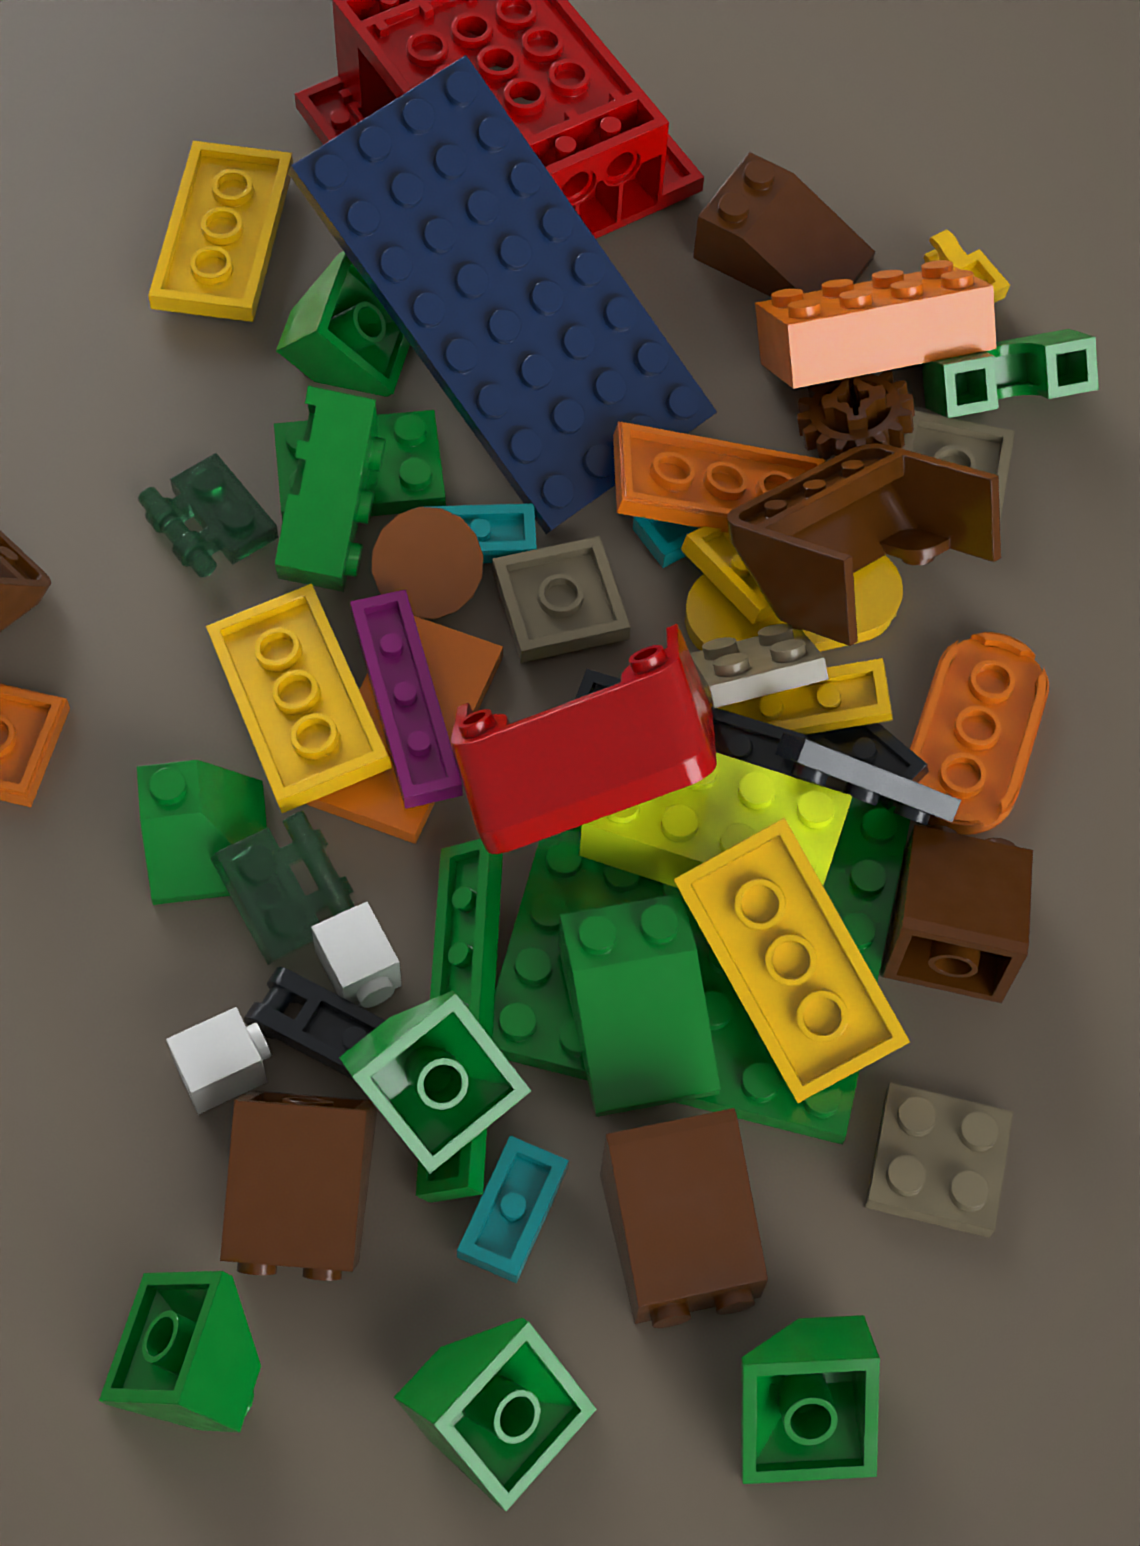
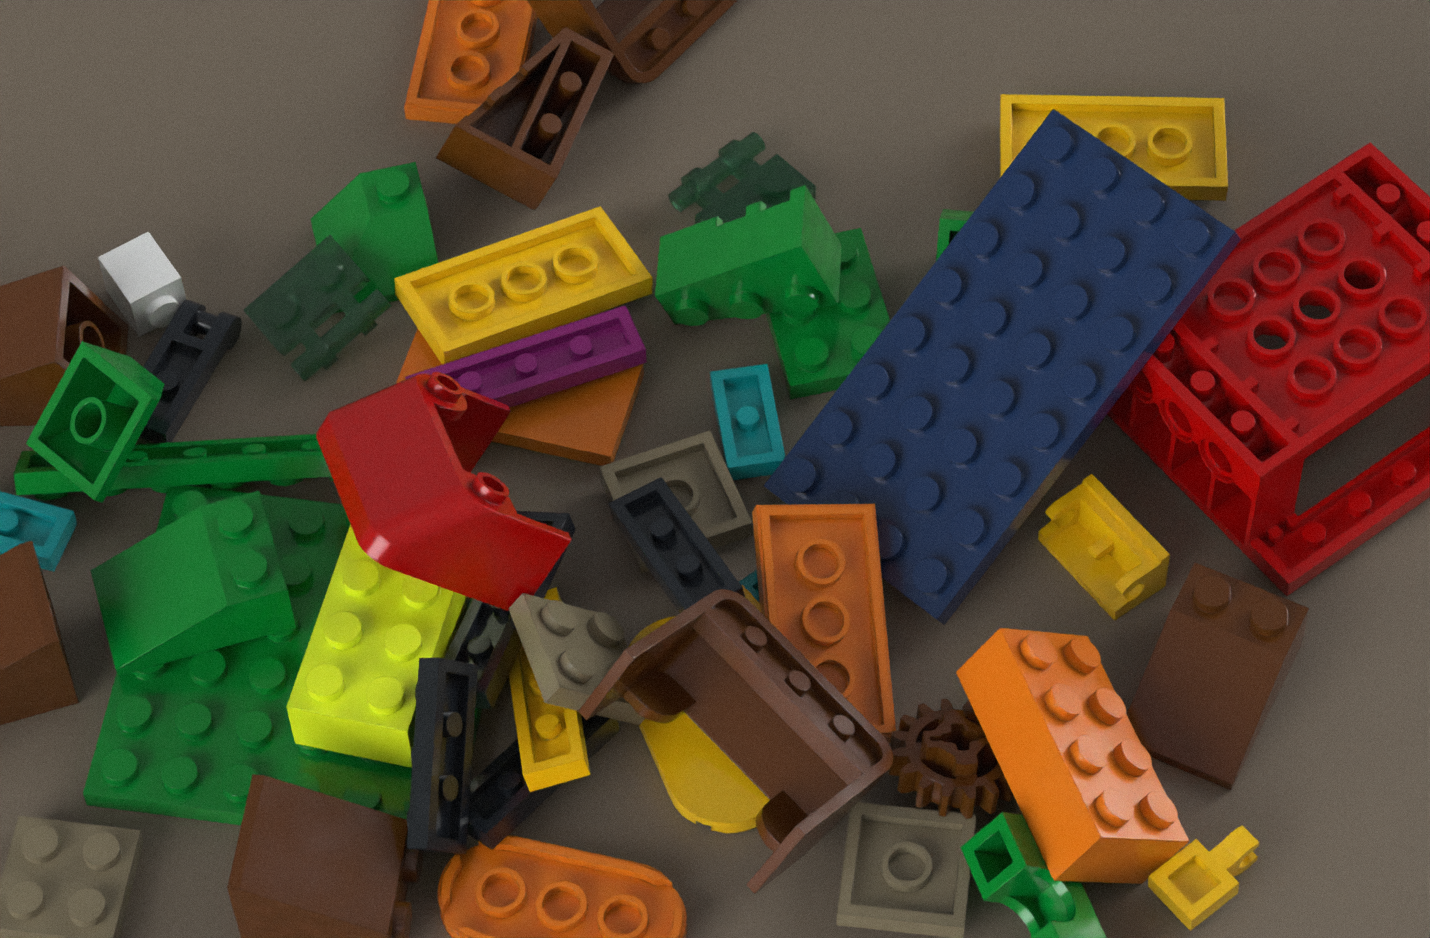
camera: 90 degrees right, 5 degrees down
(95, 661) = (530, 122): none -> reddish brown wedge
(357, 956) = (249, 375): white brick -> none
(431, 558) = (693, 372): dark orange tile -> none
(652, 577) = (671, 545): none -> black plate
(667, 283) = (1104, 547): none -> yellow hinge
(791, 960) = (221, 688): yellow plate -> none

